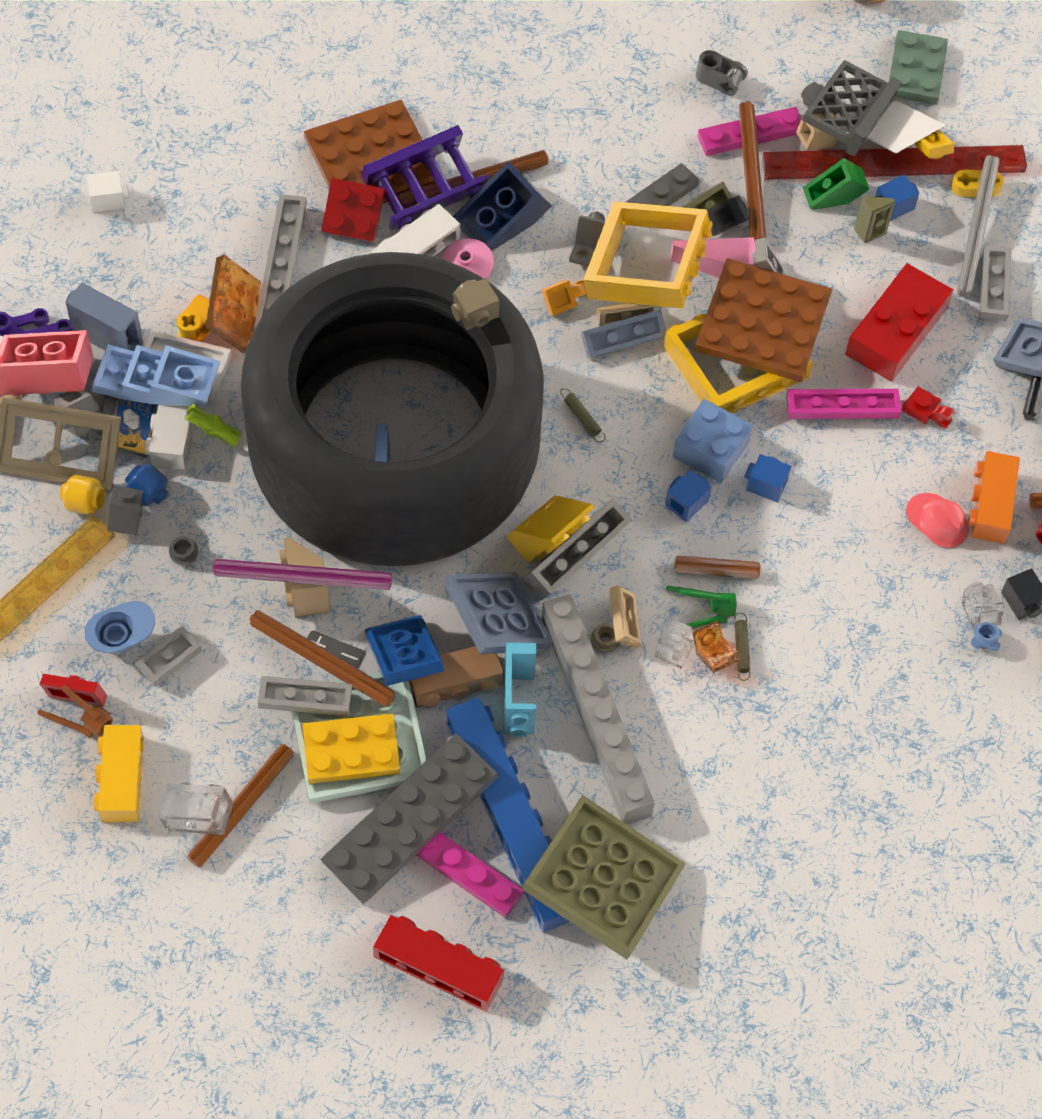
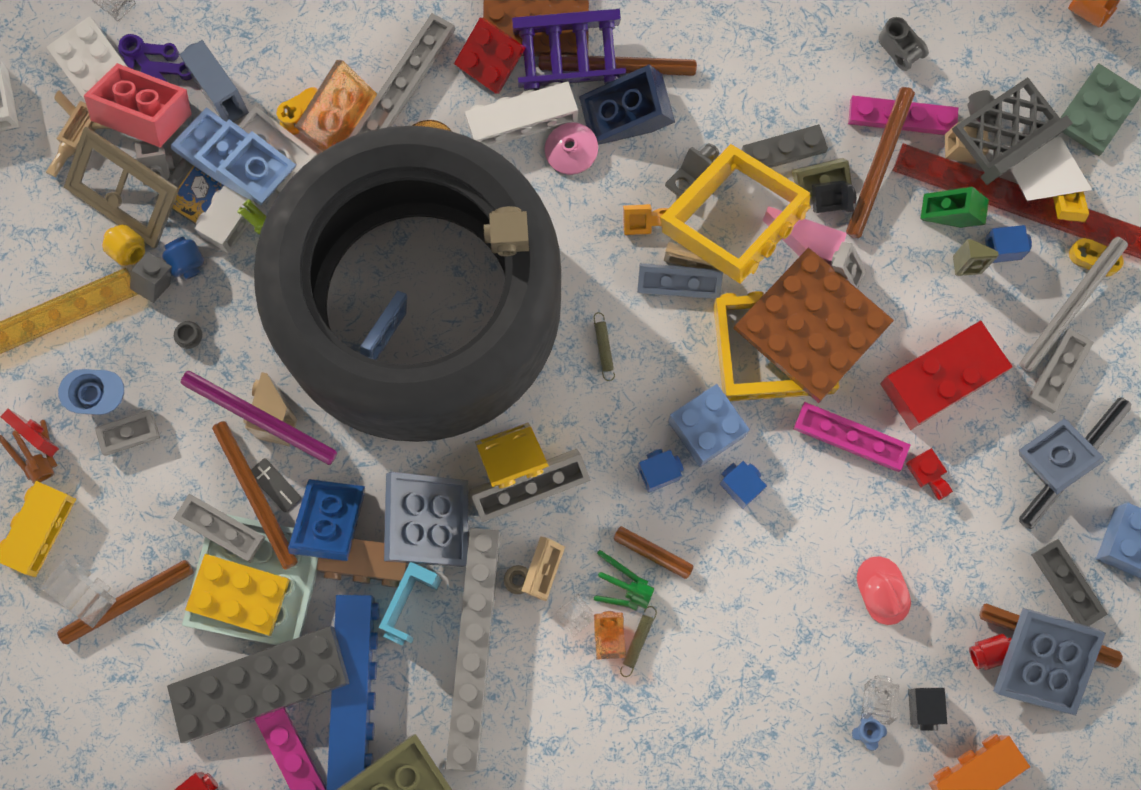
camera: 25 degrees right, 15 degrees up
(994, 497) = (947, 594): orange brick -> none

